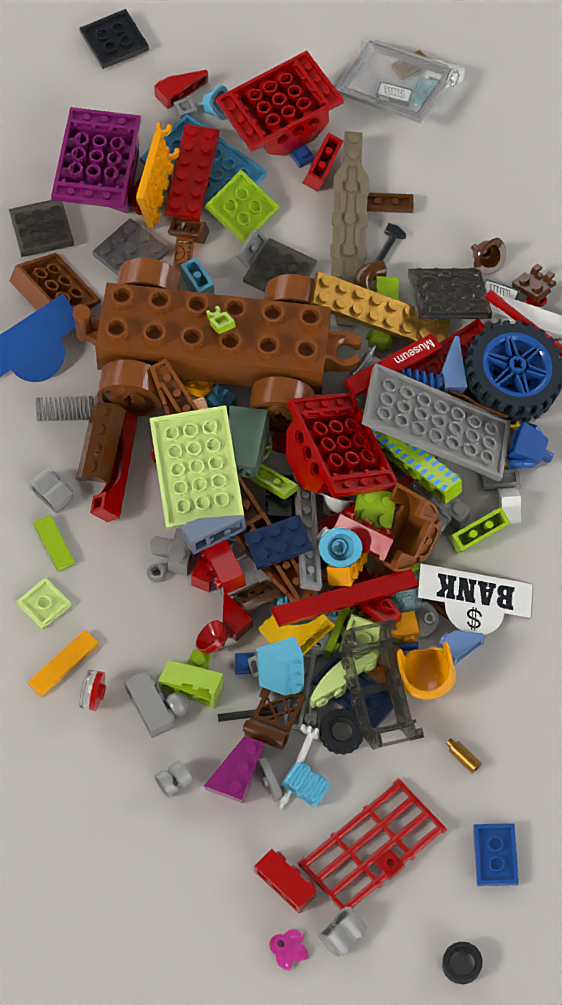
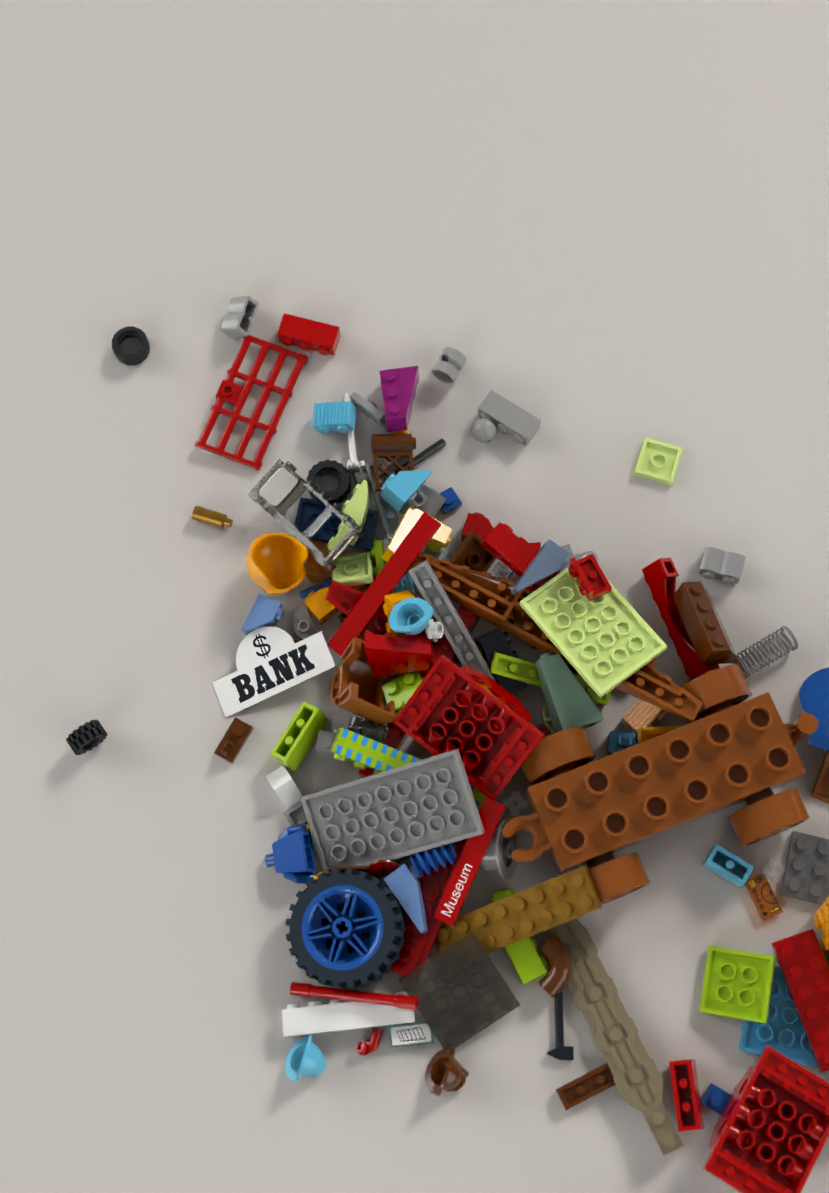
camera: 160 degrees right, 10 degrees up
(54, 543) = (686, 520): lime tile -> none
(63, 663) = (605, 418): light orange tile -> none
(92, 690) = (562, 398): piece -> none
(156, 568) = (576, 535): light grey plate -> none
(176, 499) = (589, 576): none -> red bracket
(197, 683) = (482, 453): lime wedge -> none
(199, 234) = (763, 934): reddish brown slope -> none
(199, 659) = (489, 480): lime plate -> none
(211, 637) = (492, 500): red piece -> none
(220, 321) = (659, 776): lime plate -> none
(251, 248) = (697, 941): light grey plate -> none
(277, 260) = (652, 930): clear smoke plate -> none
(278, 542) = (473, 595): dark blue plate -> none
(291, 950) = (276, 289): dark pink plate -> none
(407, 601) = (329, 624): clear light blue brick -> none
(495, 855) = (143, 446): blue plate -> none
(531, 286) = (378, 1057): reddish brown plate -> none
(534, 561) = (233, 740): none -> reddish brown plate

